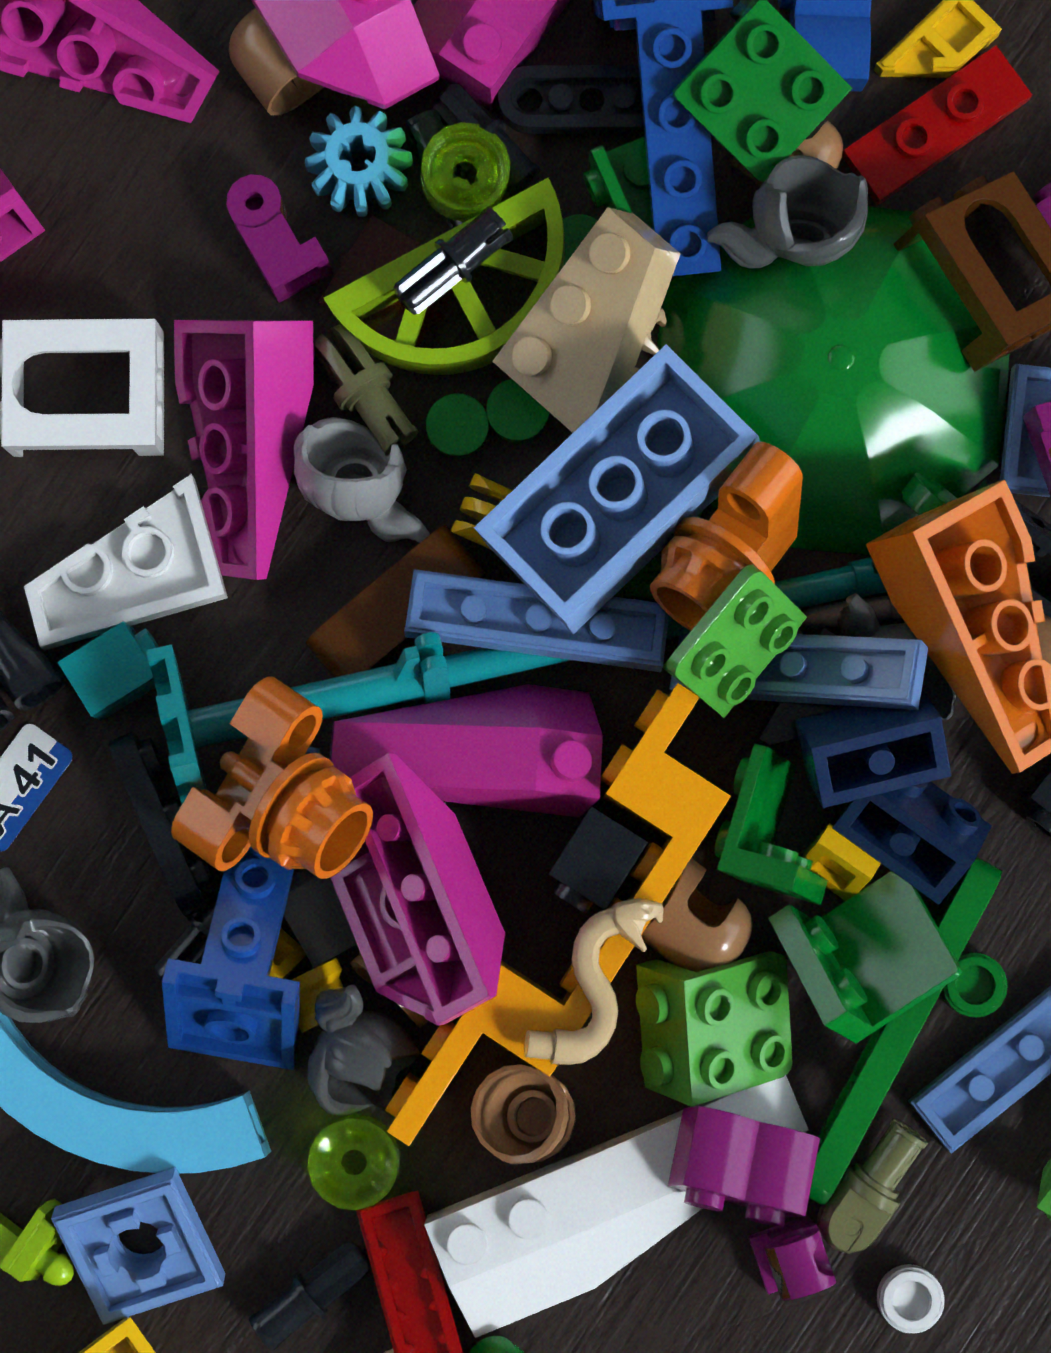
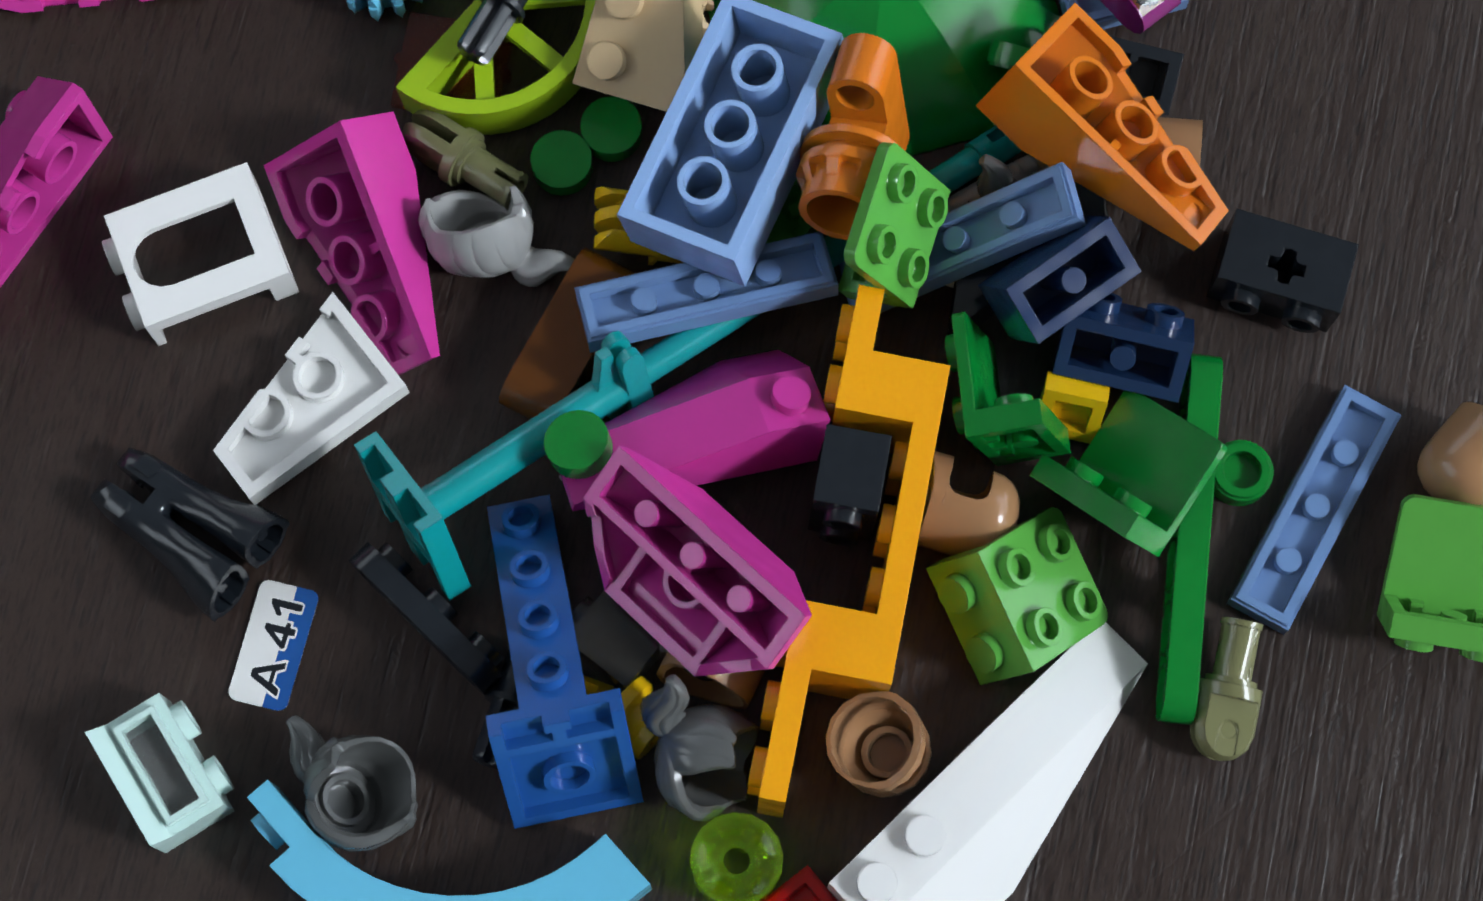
camera: 25 degrees left, 10 degrees down
(111, 670) = (327, 494): teal brick -> none
(262, 224) = (327, 64): magenta leg -> none
(275, 795) = (528, 525): orange beam -> none
(355, 728) = (578, 444): none -> green tile
(579, 1046) = (909, 640): tan animal -> none
(743, 1163) = (1103, 705): magenta brick -> none
(792, 1259) = (1185, 782): magenta leg -> none
(910, 1298) = (1310, 781): white tile -> none

